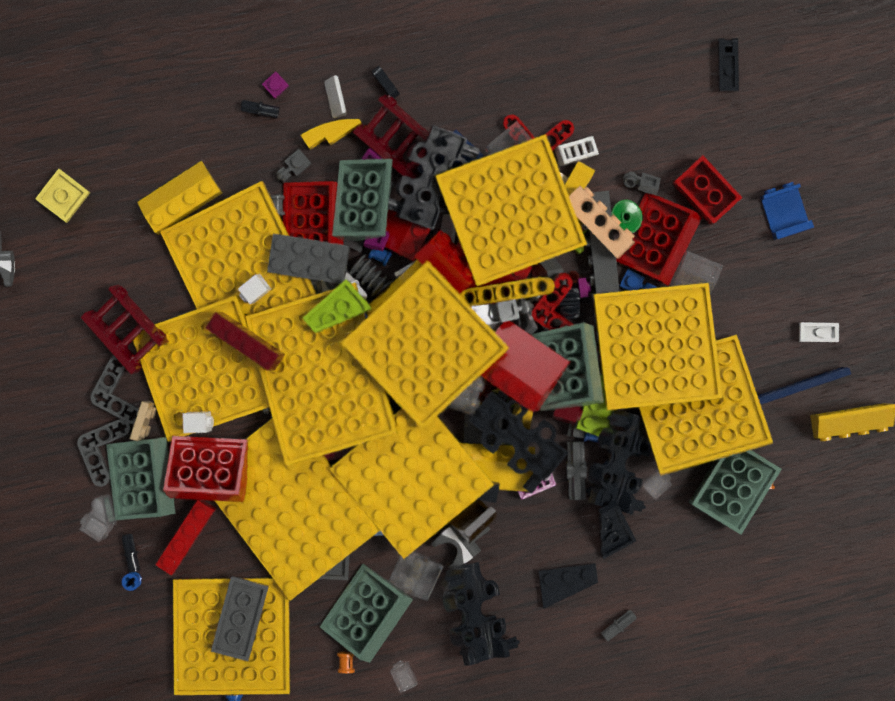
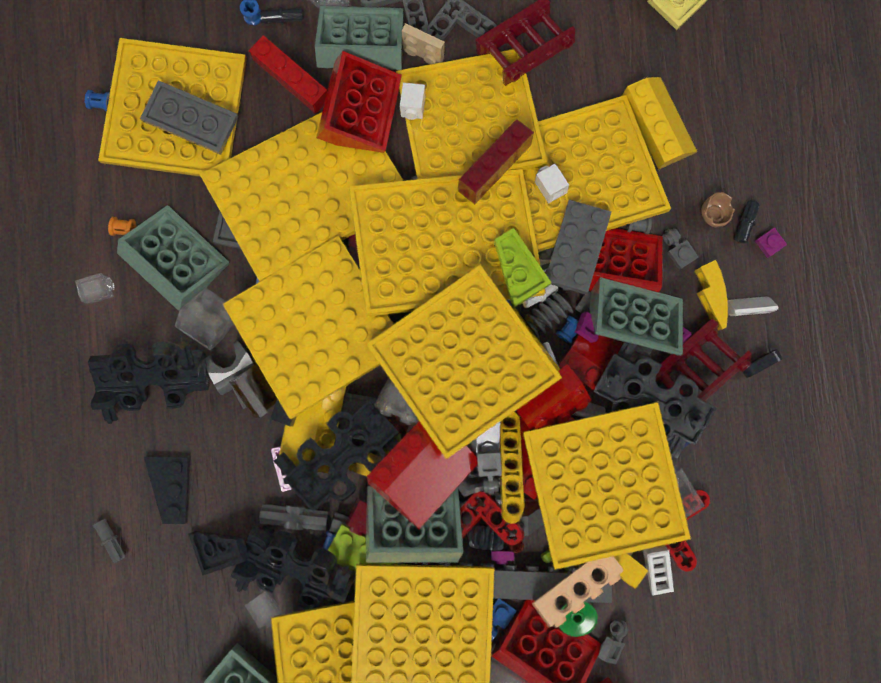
camera: 90 degrees right, 5 degrees down
(254, 137) = (717, 209): none -> medium nougat hair

